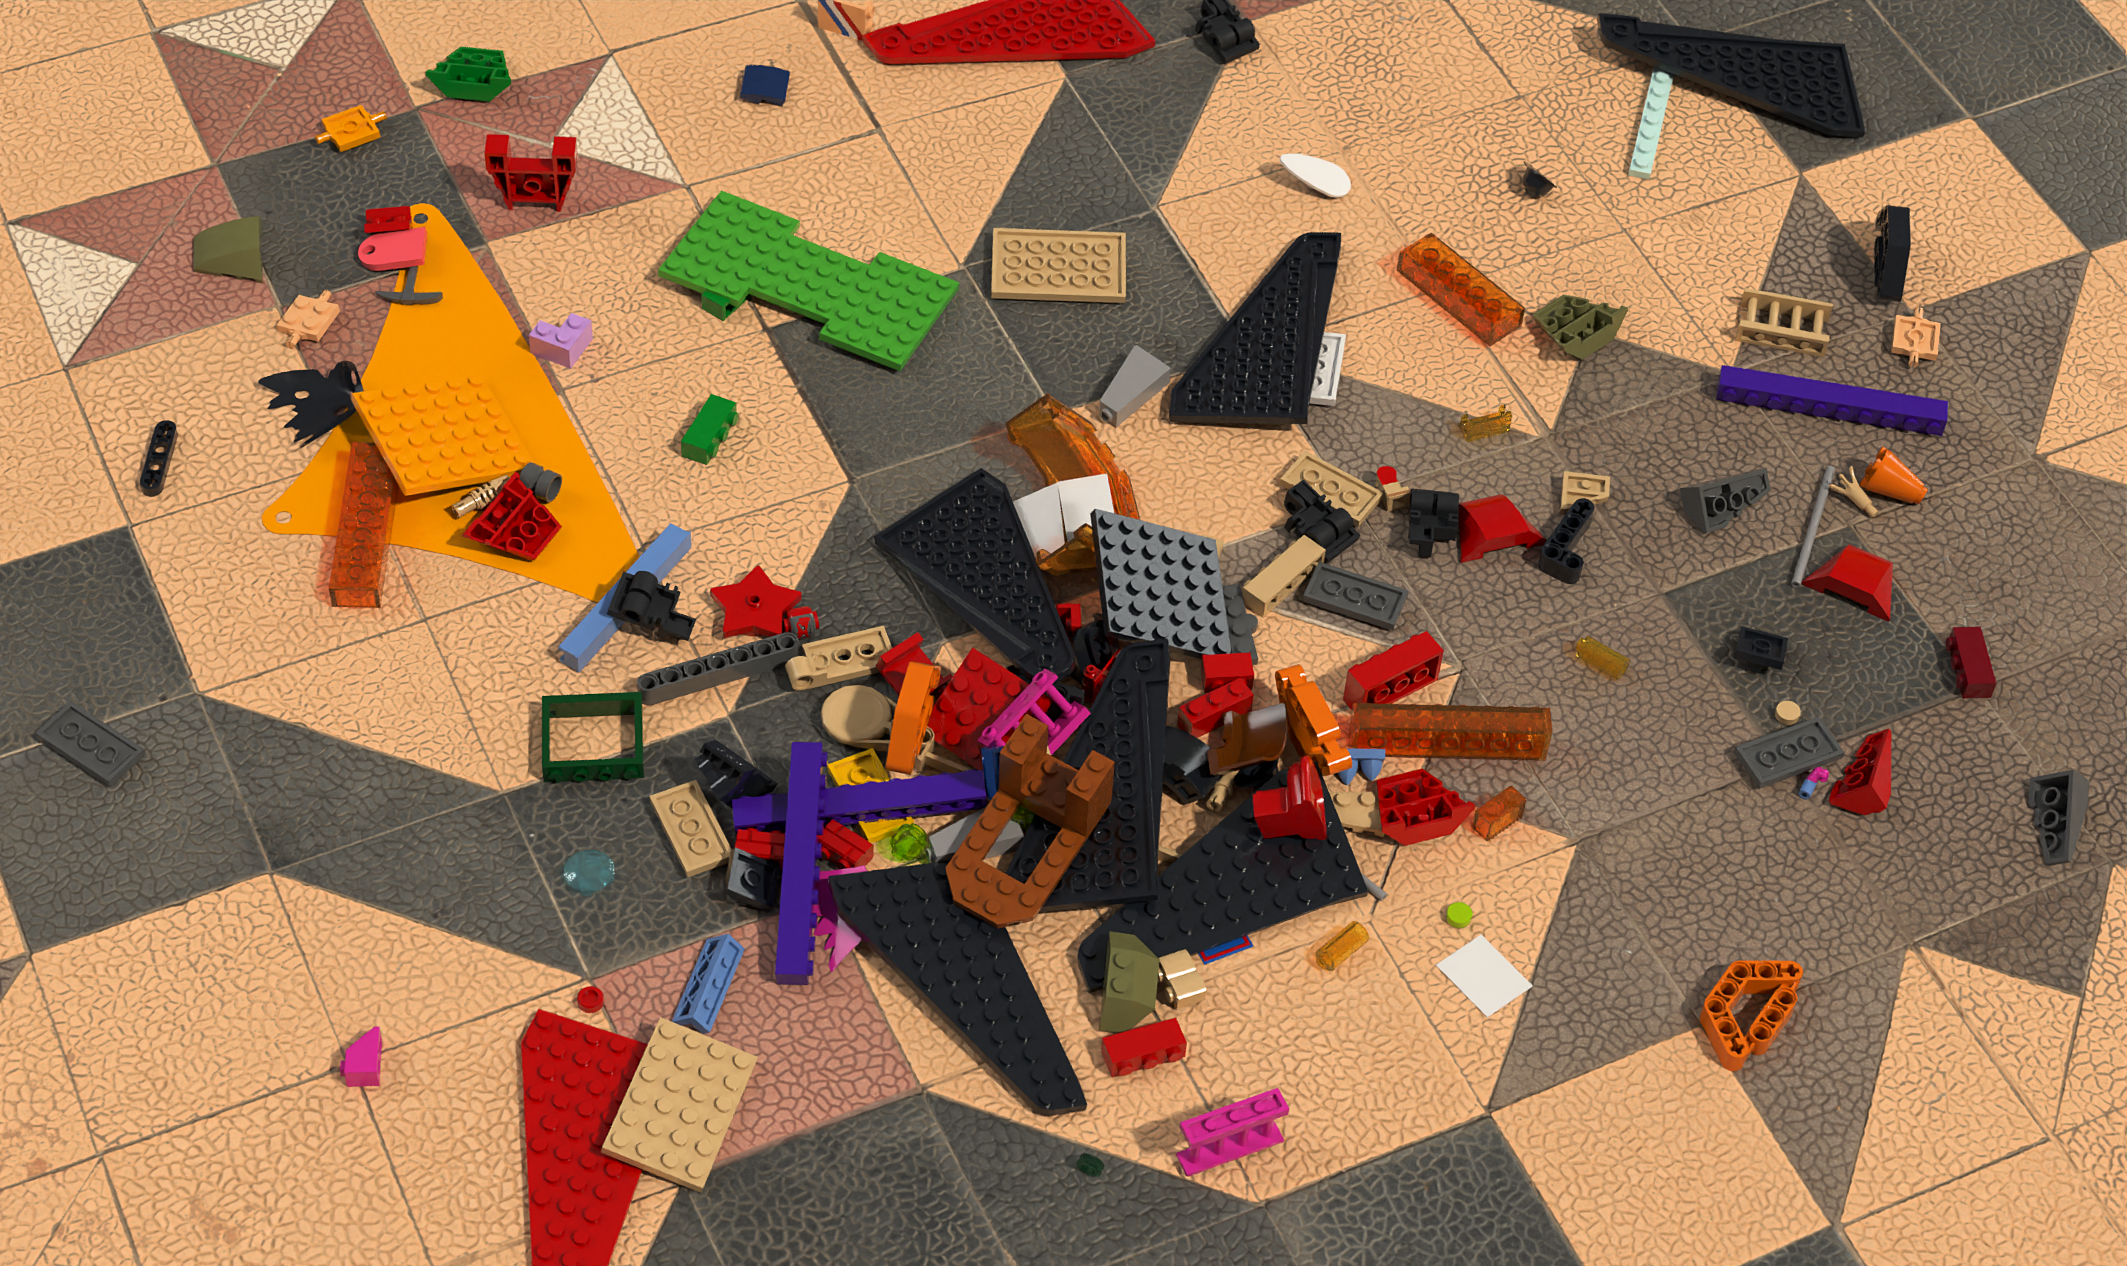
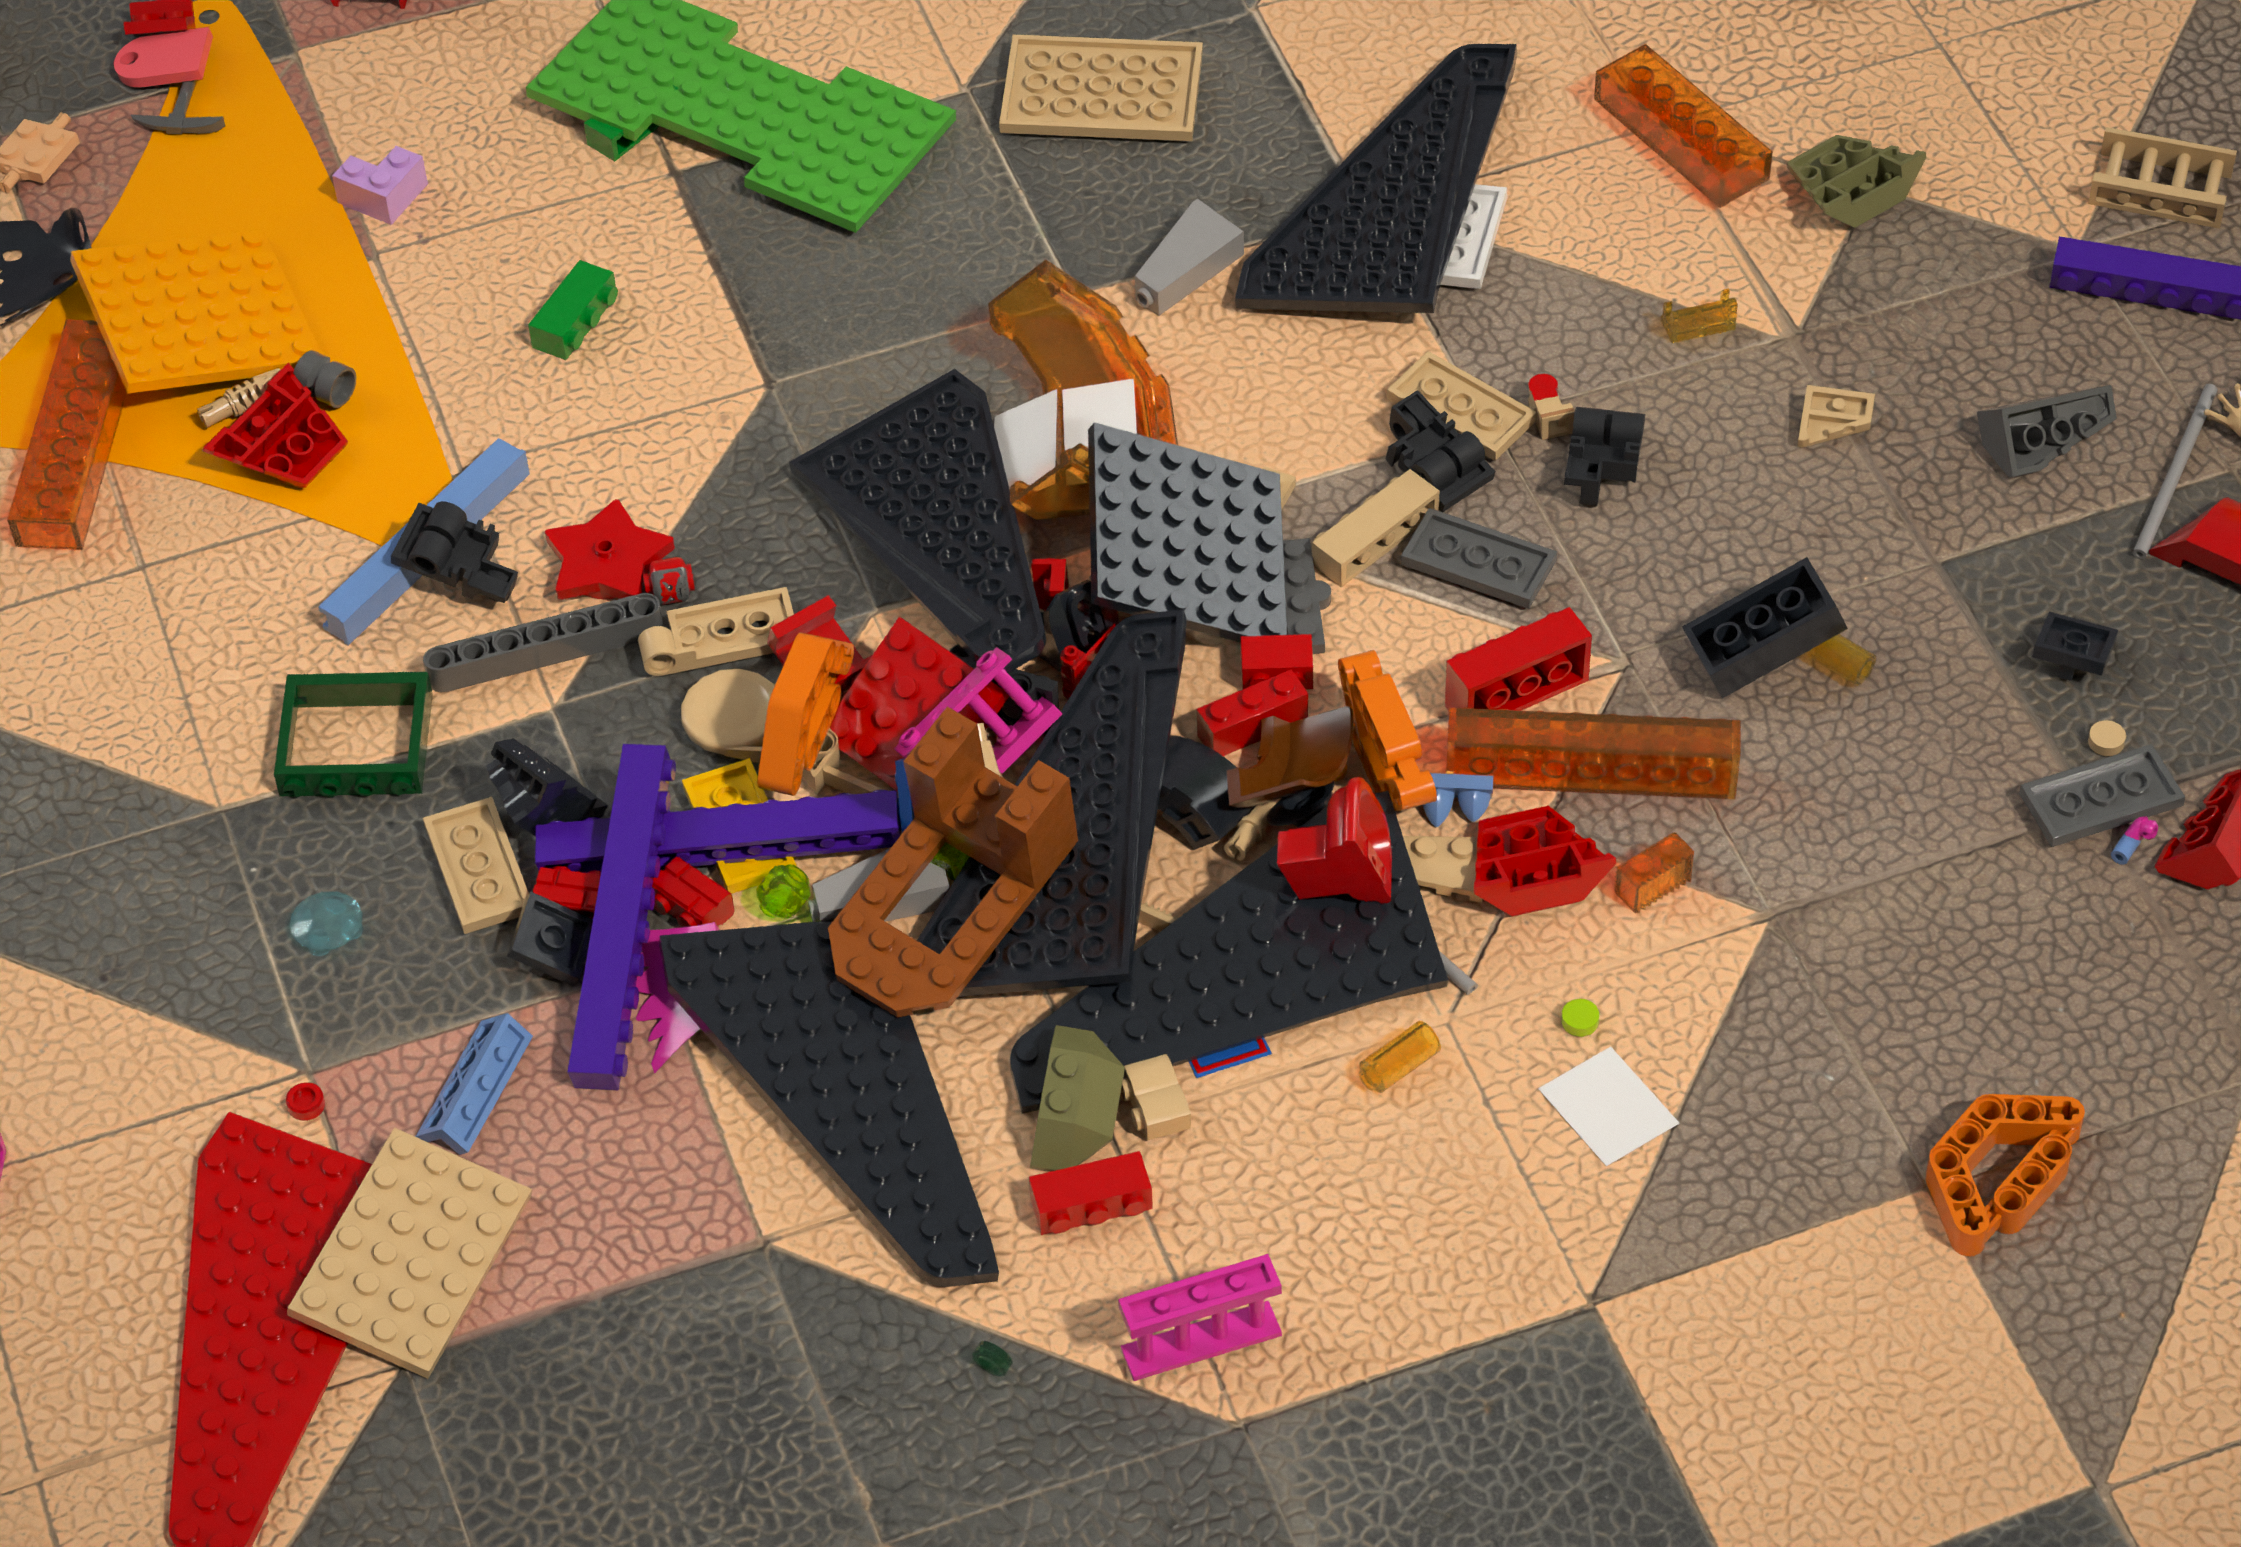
camera: 10 degrees right, 0 degrees up
(1493, 525) = (1696, 461): red wedge -> none
(1556, 554) = (1785, 502): black beam -> none
(1556, 642) = (1765, 627): none -> black brick

